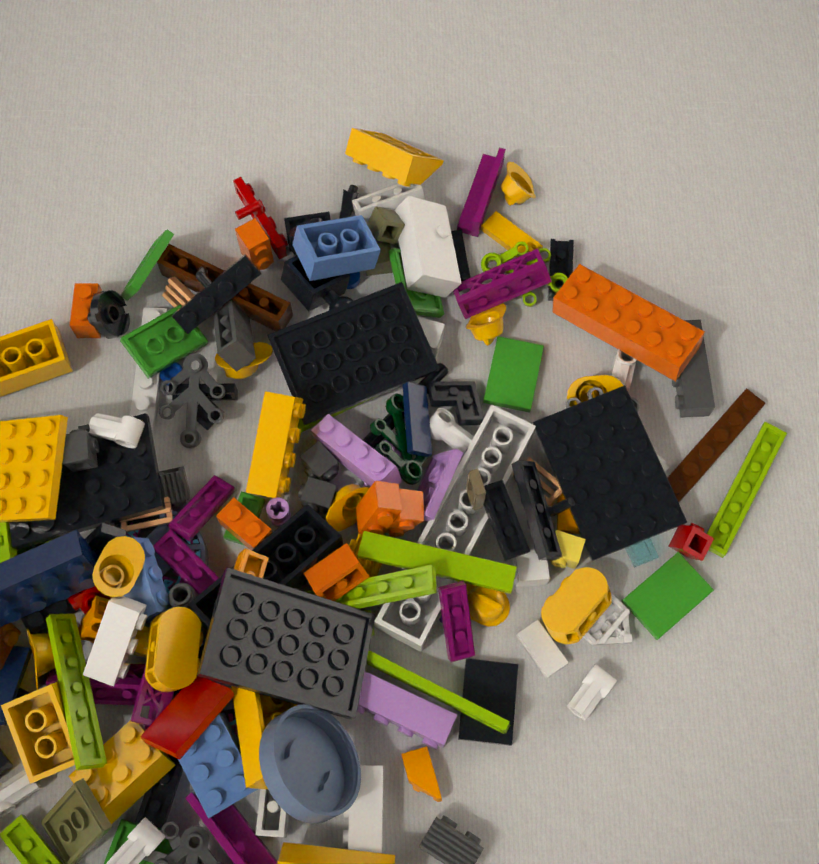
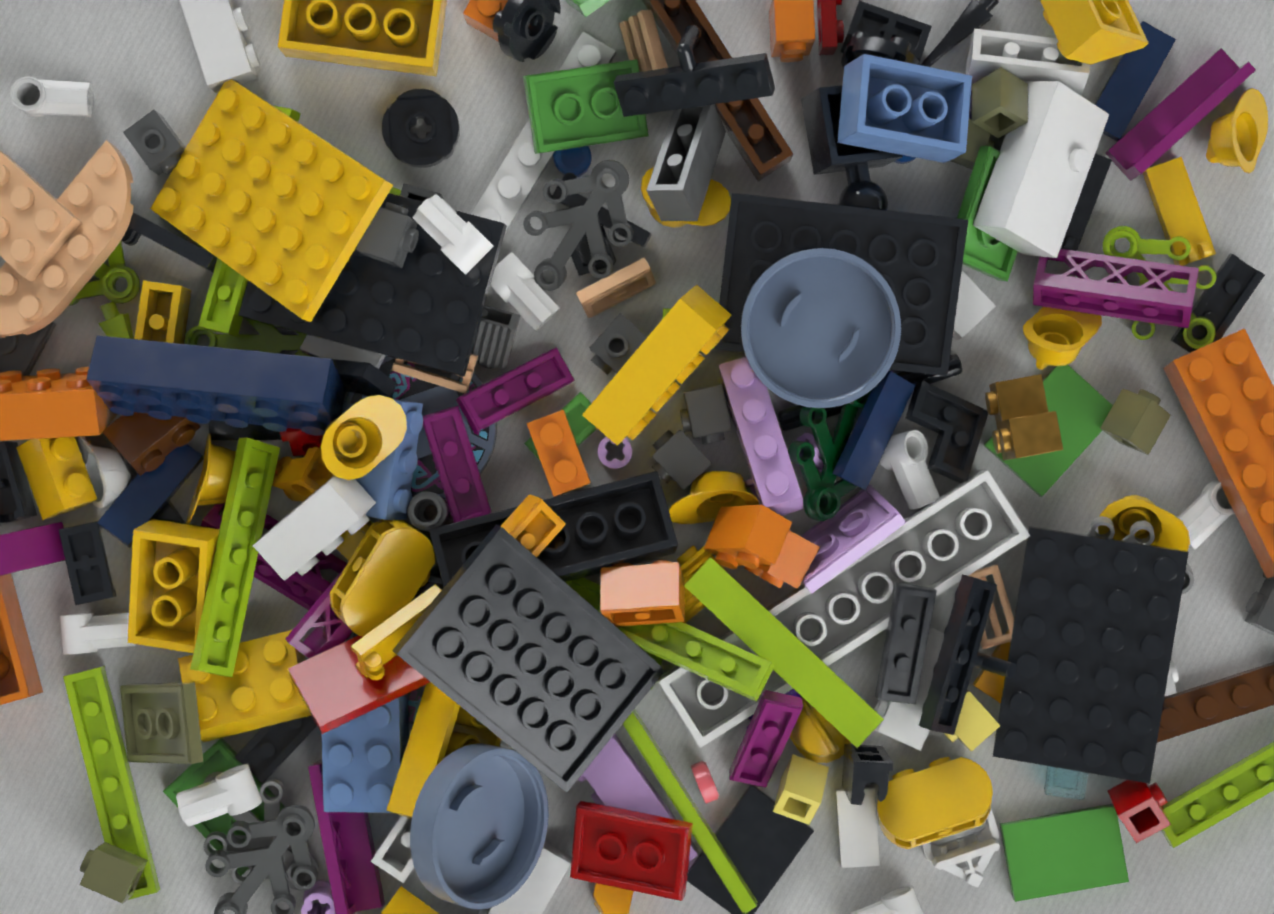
camera: 30 degrees right, 20 degrees up
(89, 405) = (403, 115): none -> black plate
(173, 452) = (516, 284): none -> white piece
(192, 687) = (377, 646): none -> yellow hinge
(231, 424) = (616, 288): none -> light nougat tile
(244, 452) = (616, 345): none -> dark grey brick
(354, 375) = (820, 328): none -> sand blue brick
(415, 734) = (631, 850): none -> red tile
(437, 672) = (705, 781): none -> coral tile
(448, 189) = (1132, 80): none -> dark blue tile
(475, 489) = (889, 592): dark tan tile -> none
(495, 371) = (1022, 418): none -> pearl gold brick
(495, 641) = (801, 789): none -> light yellow brick
(522, 609) = (863, 767): none -> black hinge
(555, 343) = (1136, 420): none -> olive brick

